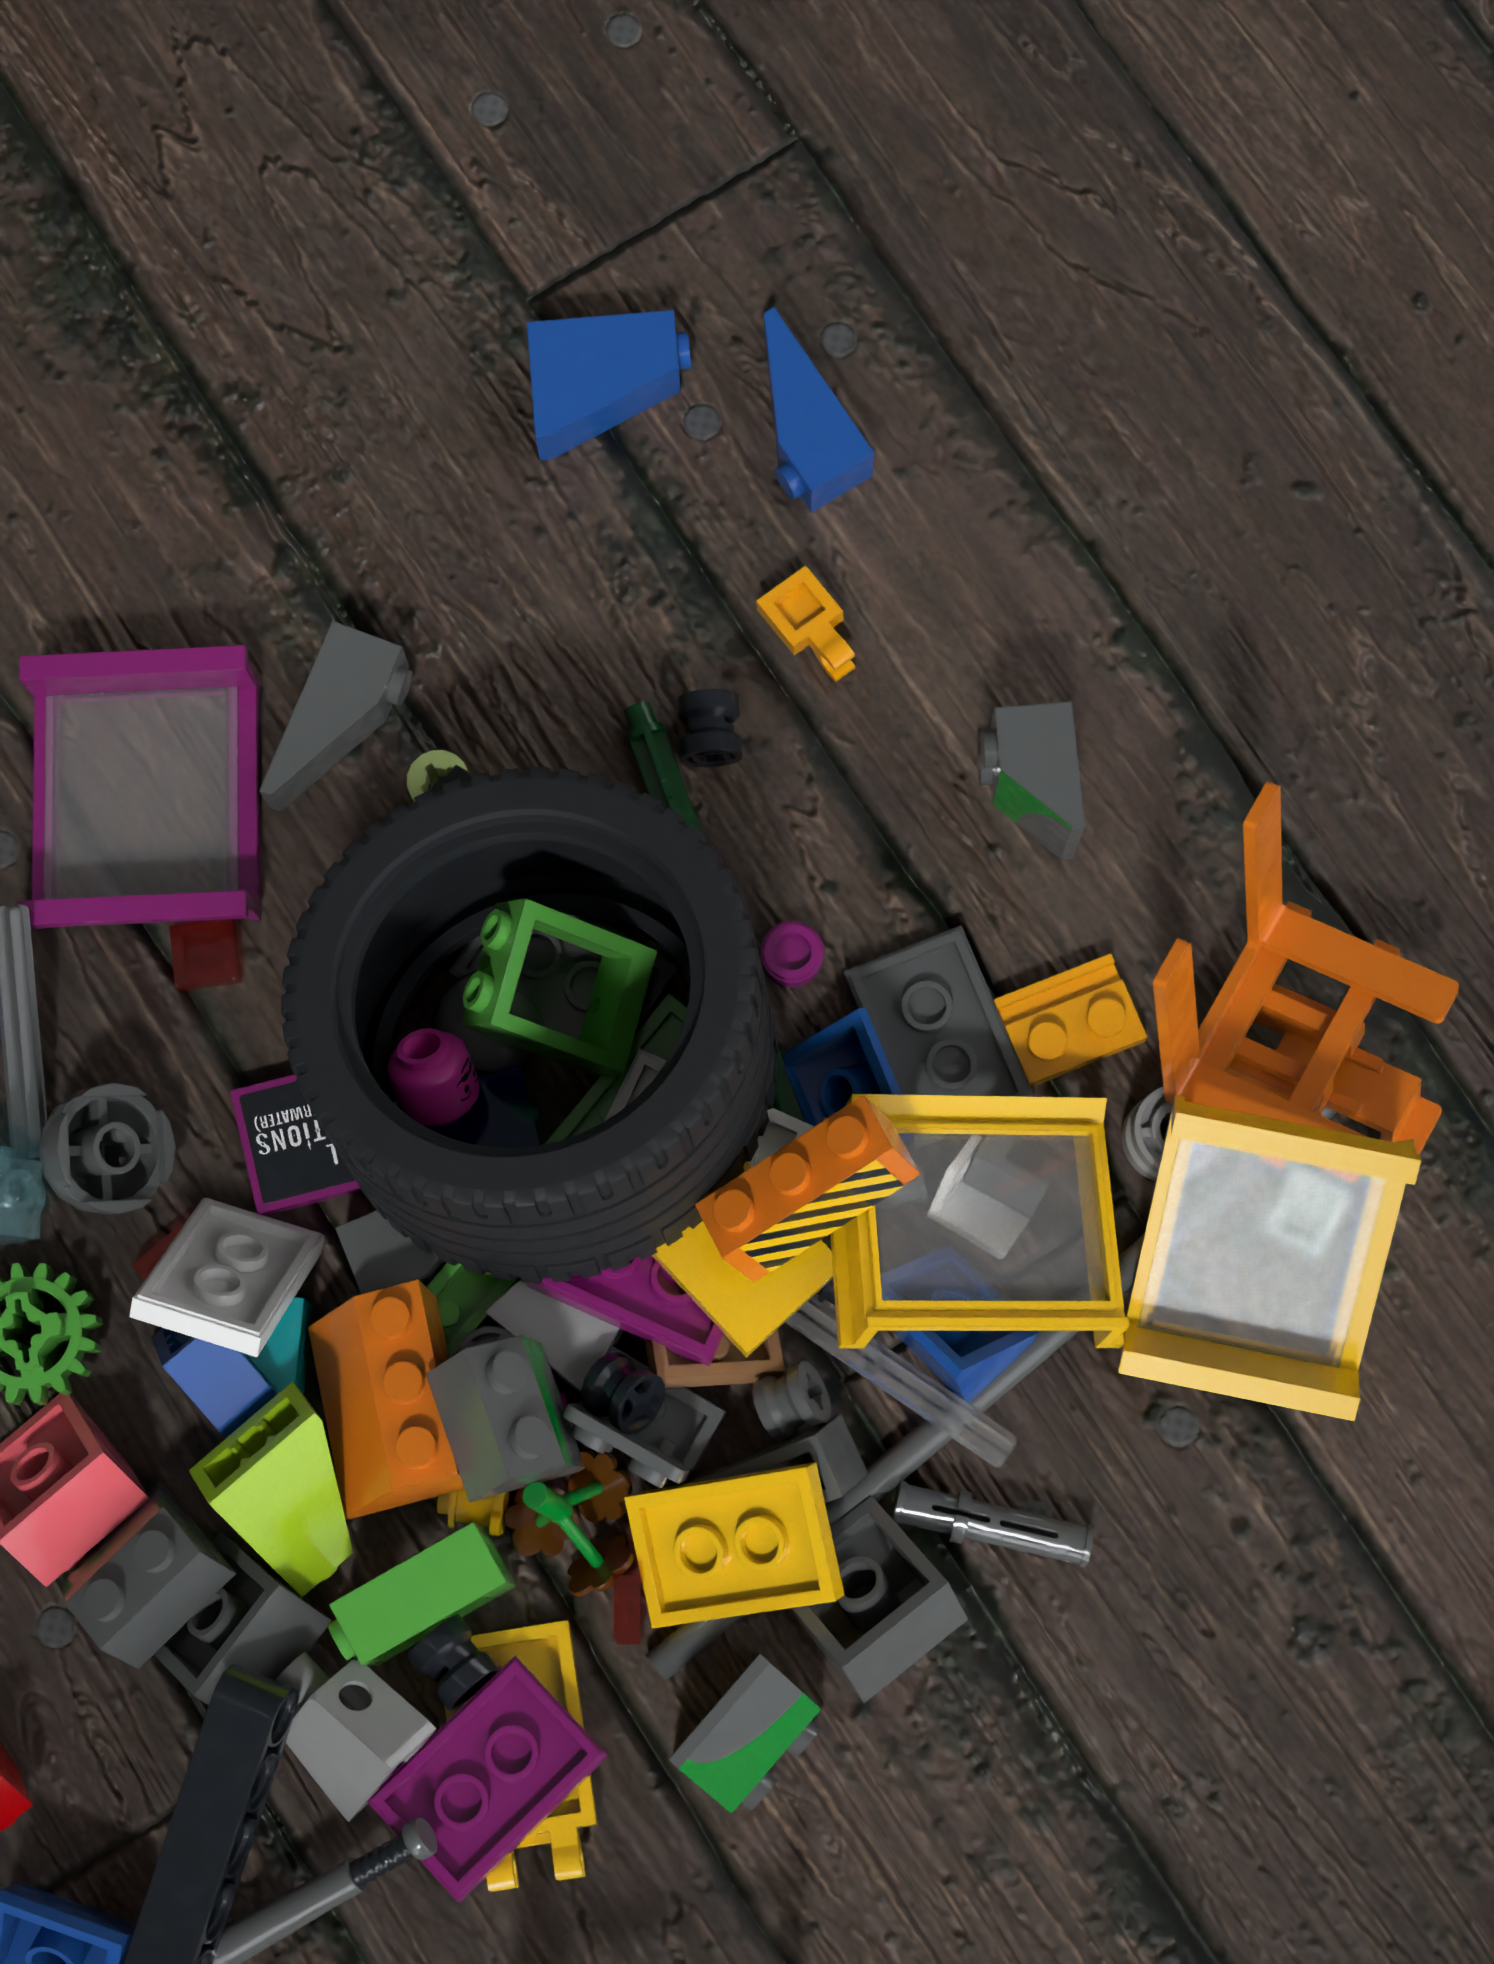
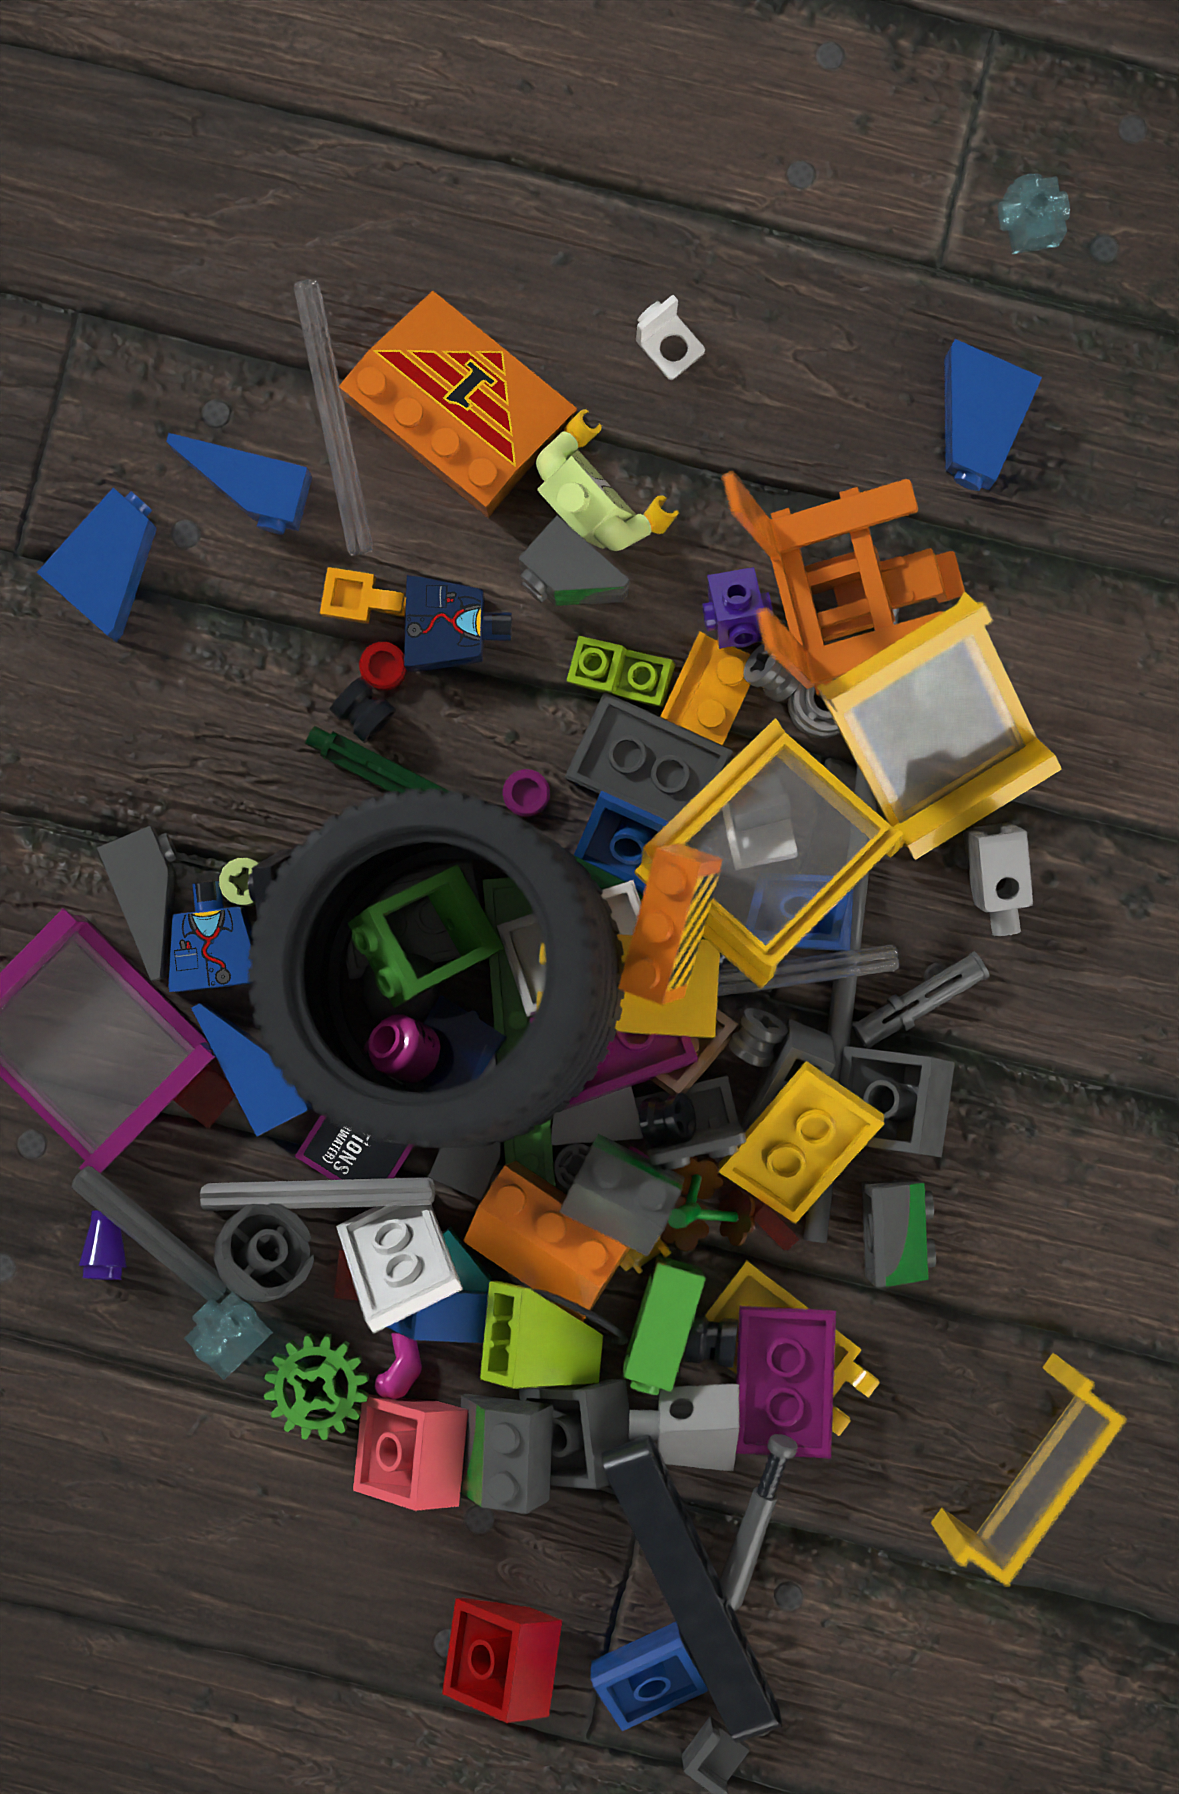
camera: 45 degrees left, 10 degrees up
(126, 1402) = (403, 1371): none -> dark pink arm
(219, 1149) = (319, 1193): none -> light grey axle
(252, 999) = (251, 1073): none -> blue slope
(341, 803) = (210, 943): none -> blue torso
(364, 1572) = (620, 1337): none -> black piece
(770, 708) = (383, 666): none -> red tile
(868, 723) = (448, 624): none -> dark blue torso
(944, 438) = (333, 417): none -> clear axle
(996, 922) = (621, 671): none -> lime slope
(1077, 527) = (457, 402): none -> orange slope
(1118, 726) = (587, 499): none -> yellowish green torso
(1140, 1055) = (767, 672): none -> dark grey wheel
(1148, 949) = (734, 607): none -> dark purple brick
(1200, 1441) = (996, 854): none -> light grey torso
(1346, 627) = (657, 324): none -> white bracket

